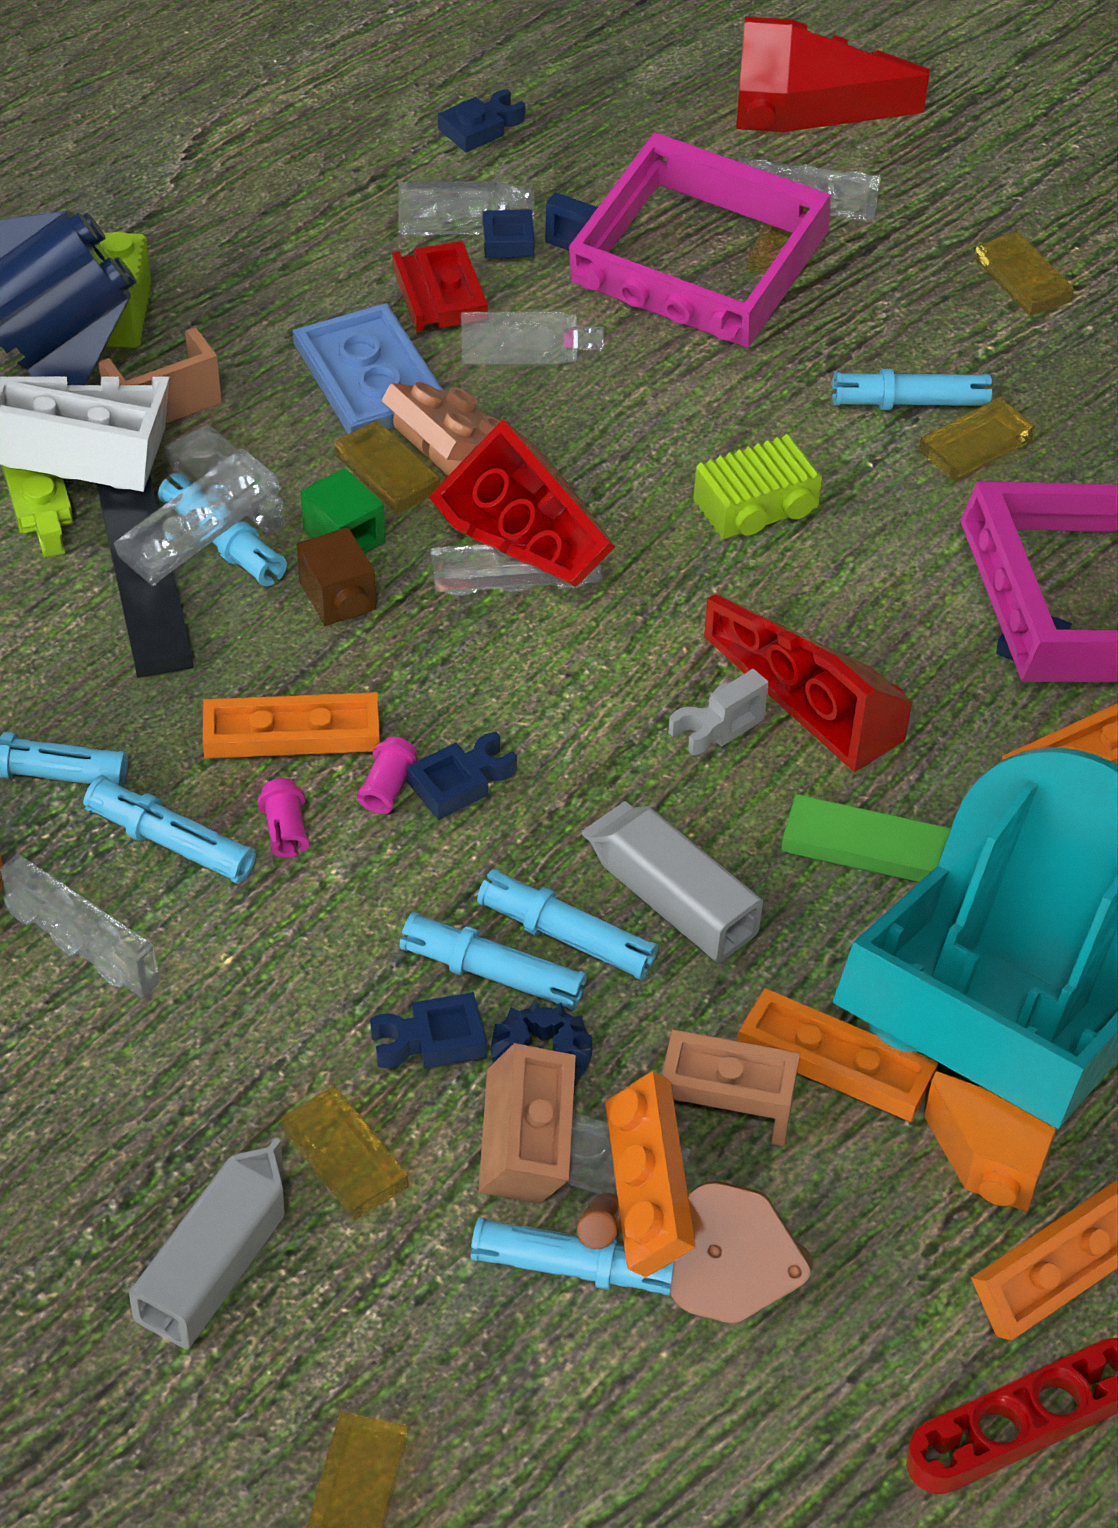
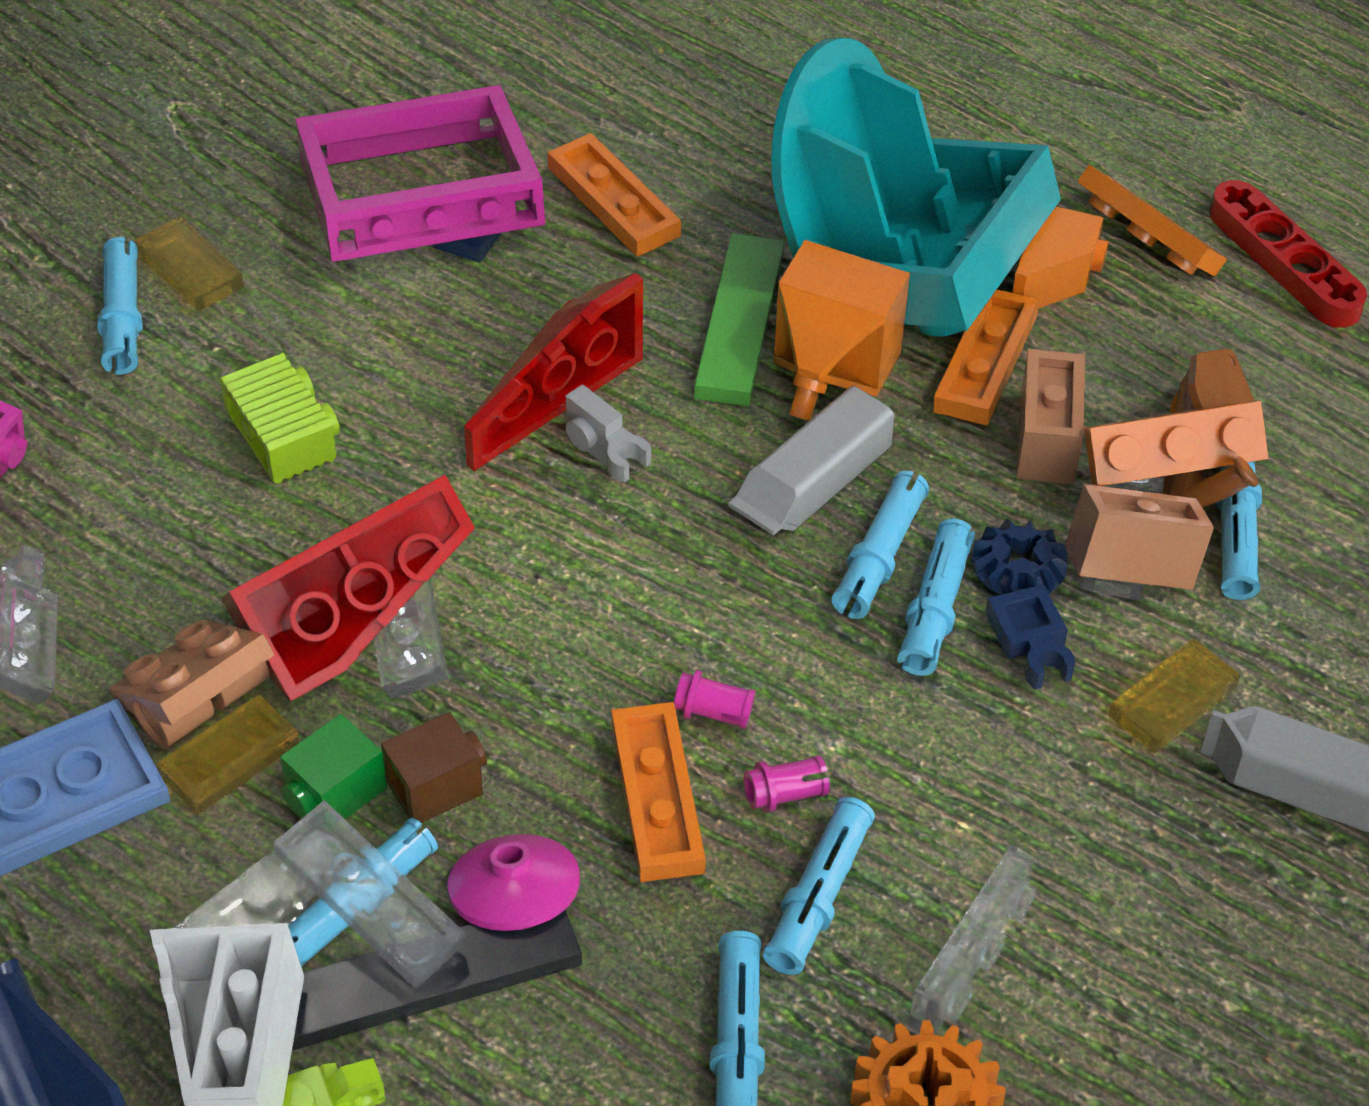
camera: 95 degrees left, 0 degrees up
(192, 382) = (93, 989): nougat panel -> none
(217, 629) = (513, 882): none -> dark pink dish
(456, 778) = (705, 641): dark blue plate -> none
(841, 883) = (838, 323): none -> orange piece

